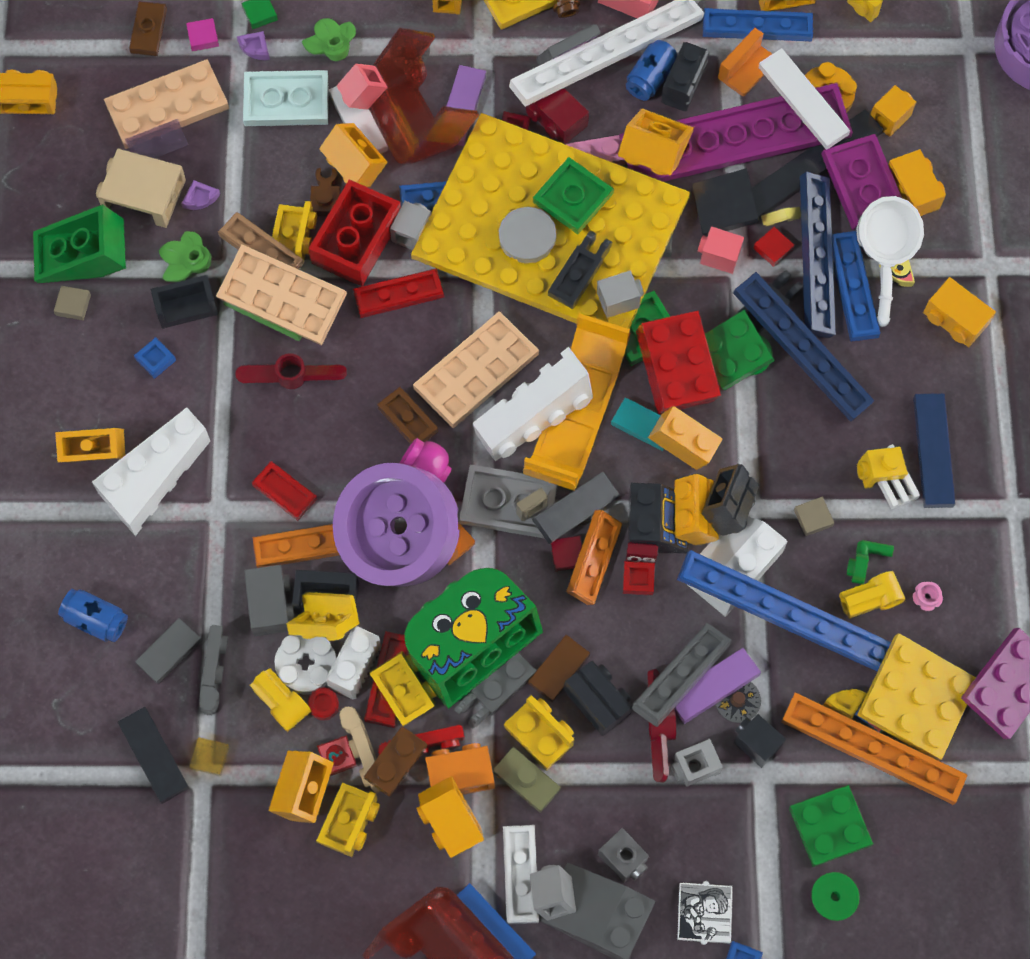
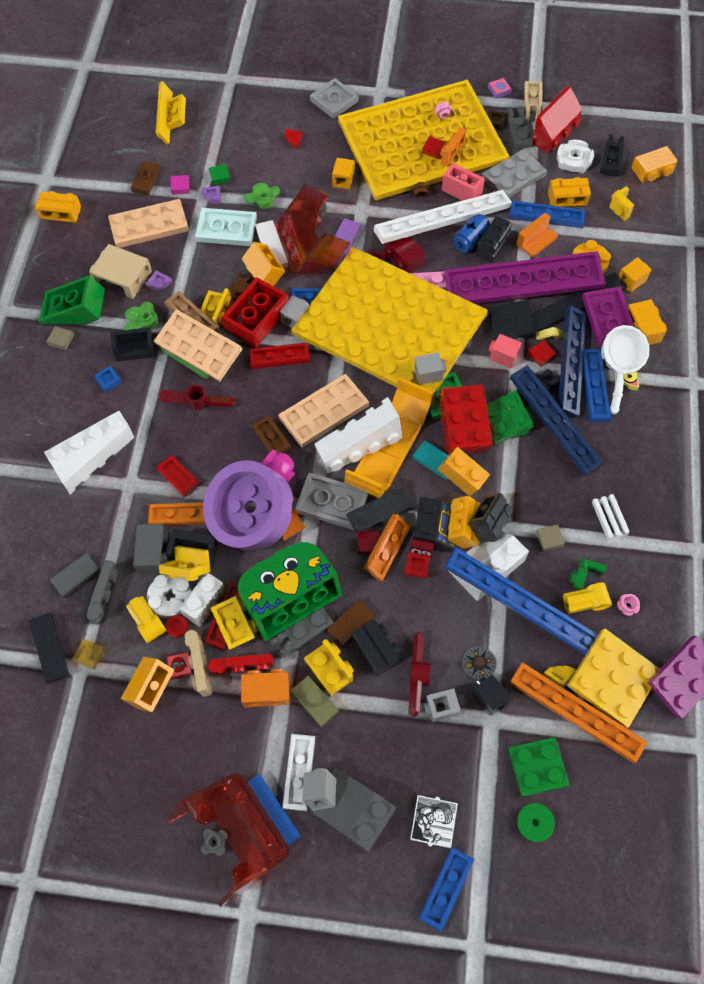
camera: 10 degrees right, 5 degrees down
(90, 445) = (49, 428): light orange brick -> none
(93, 615) = (27, 543): blue piece -> none
(158, 140) = (138, 243): clear purple plate -> none
(347, 820) = (178, 713): yellow bracket -> none
(361, 86) = (275, 222): coral brick -> none
(395, 761) = (218, 674): reddish brown plate -> none
(450, 817) = (251, 721): light orange brick -> none
(527, 234) = (371, 324): light grey tile -> none
(531, 504) = (347, 503): dark tan tile -> none
(568, 44) = (419, 207): dark grey tile -> none
(573, 195) = (406, 302): green plate -> none
(578, 271) = (403, 351): black hinge -> none
(624, 856) = (378, 769): flat silver brick -> none
(654, 142) = (467, 276): light orange slope -> none
(681, 675) = (438, 638): dark grey tile -> none
(718, 684) = (462, 650): medium lavender tile -> none
(804, 99) = (574, 258): white tile -> none
(881, 466) = (603, 508): yellow bracket -> none
(934, 451) = (642, 503): dark blue tile -> none
(959, 312) = (669, 410): light orange brick -> none

